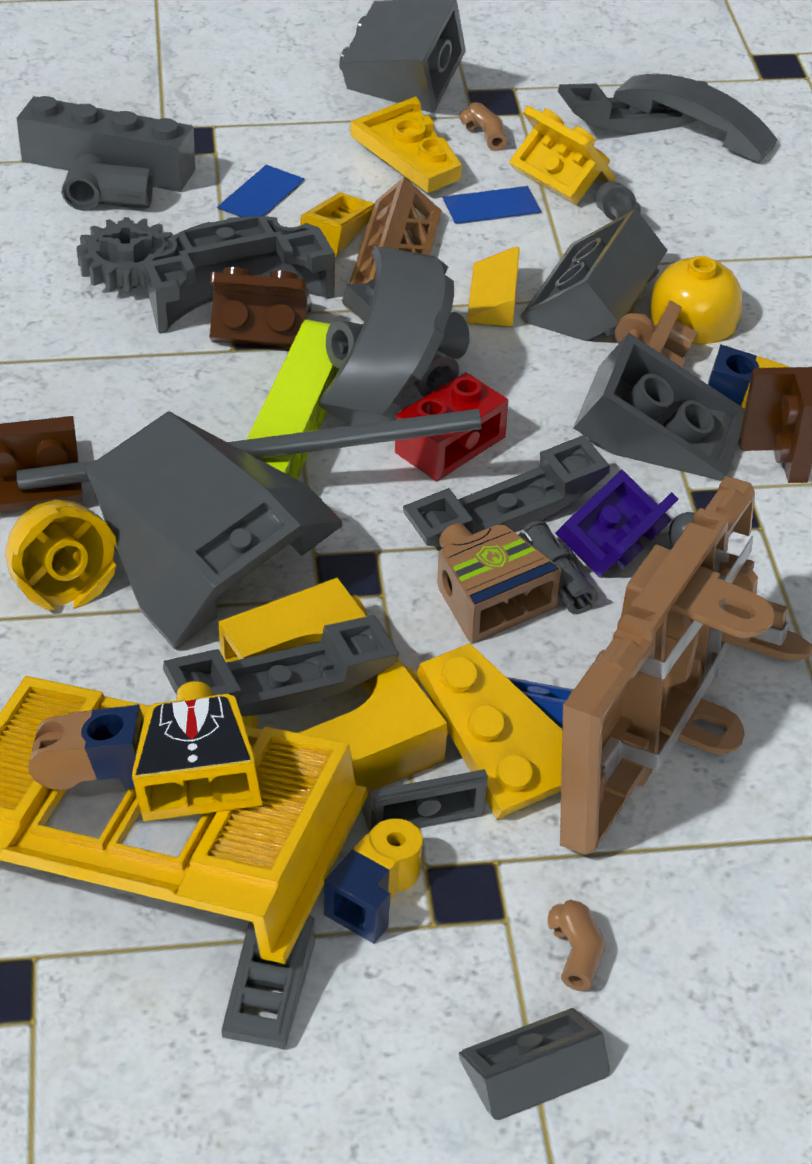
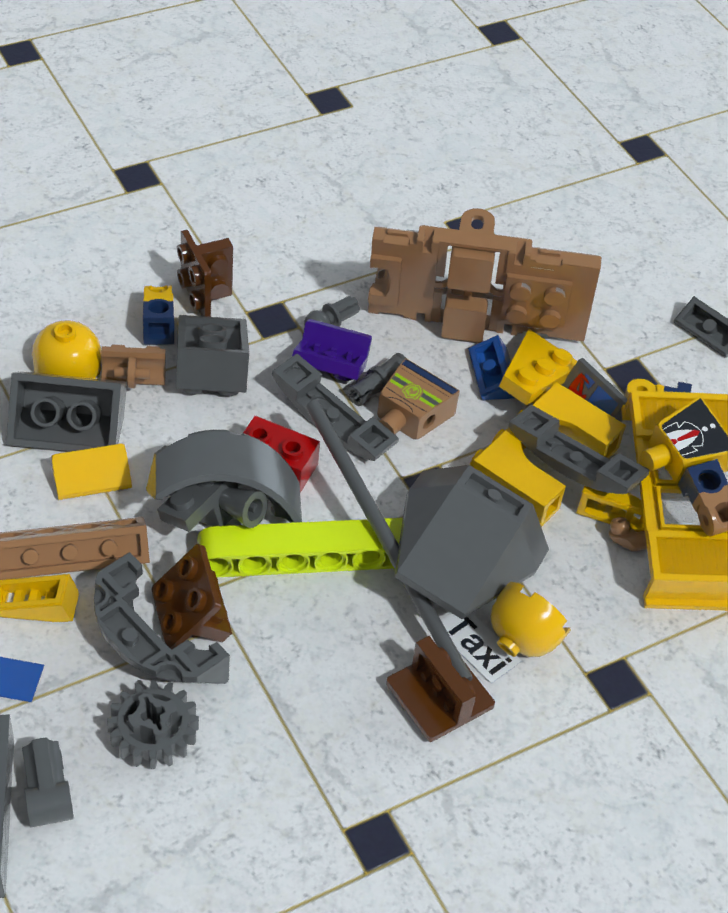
camera: 115 degrees left, 5 degrees up
(587, 942) = (636, 319): medium nougat arm -> none

